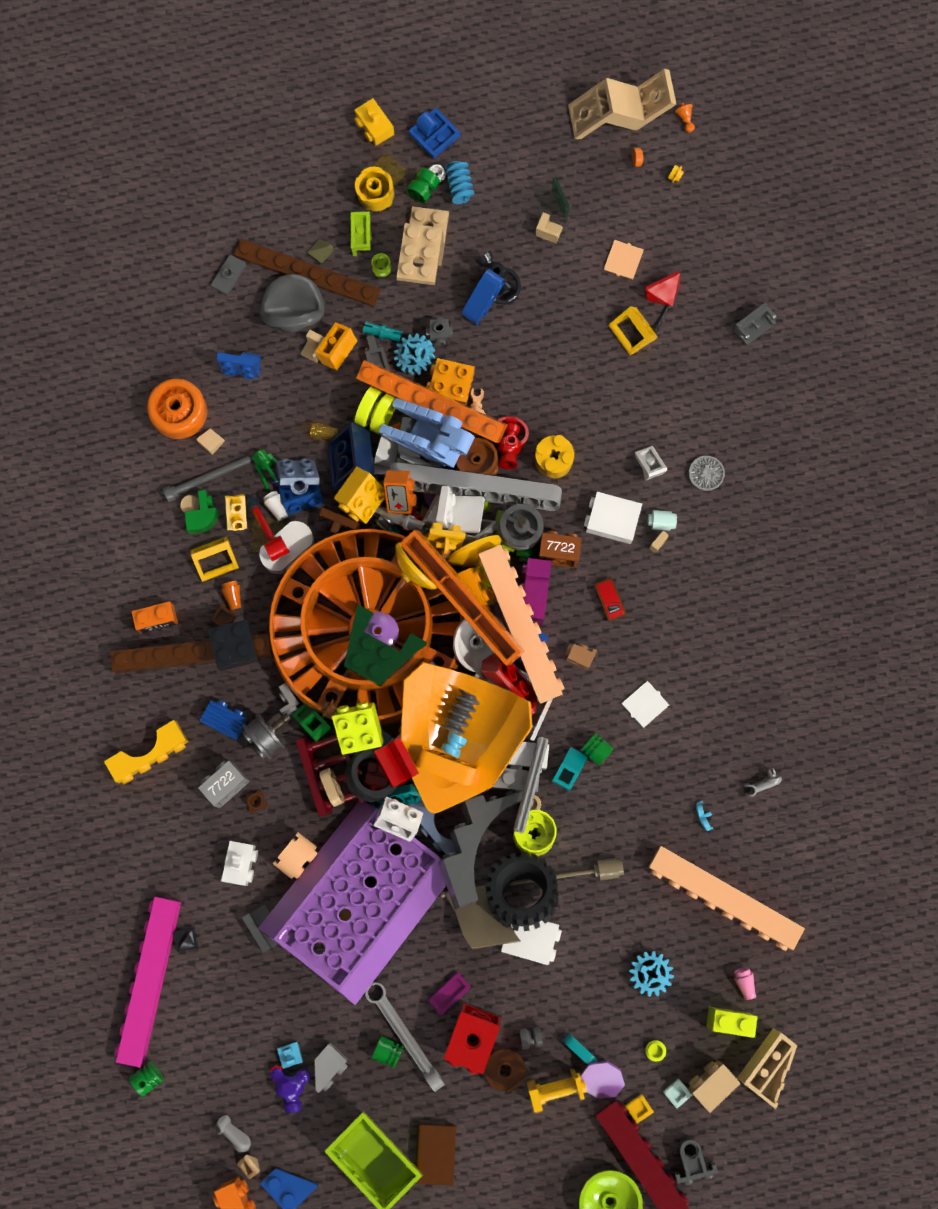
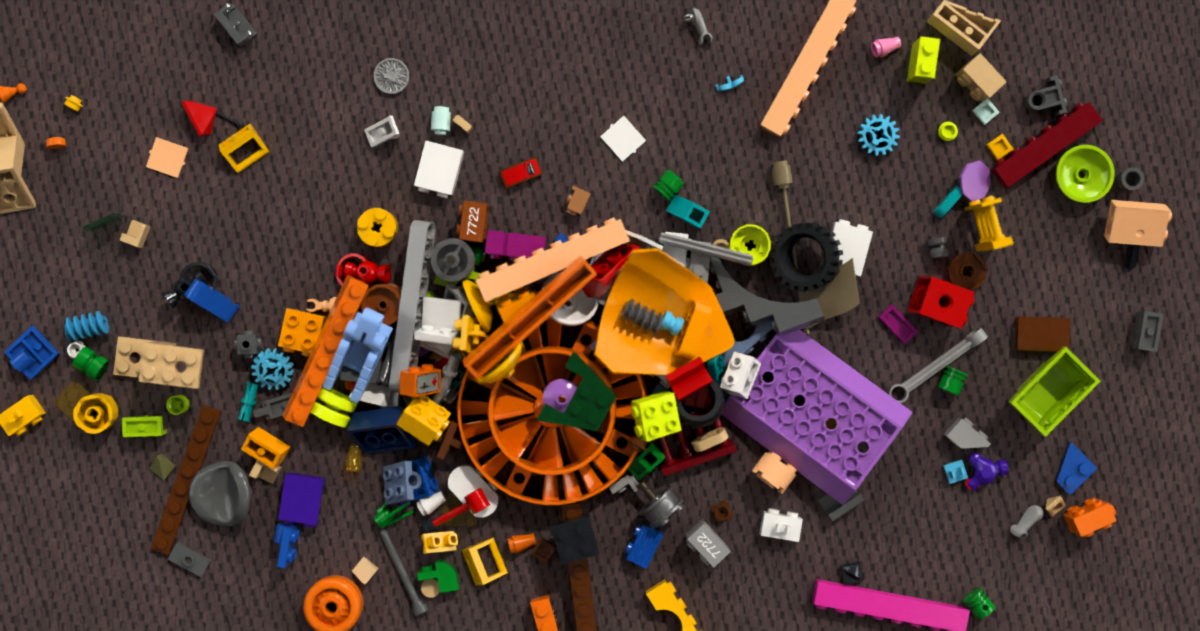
camera: 90 degrees left, 10 degrees up
(284, 380) = (301, 499): none -> dark purple panel

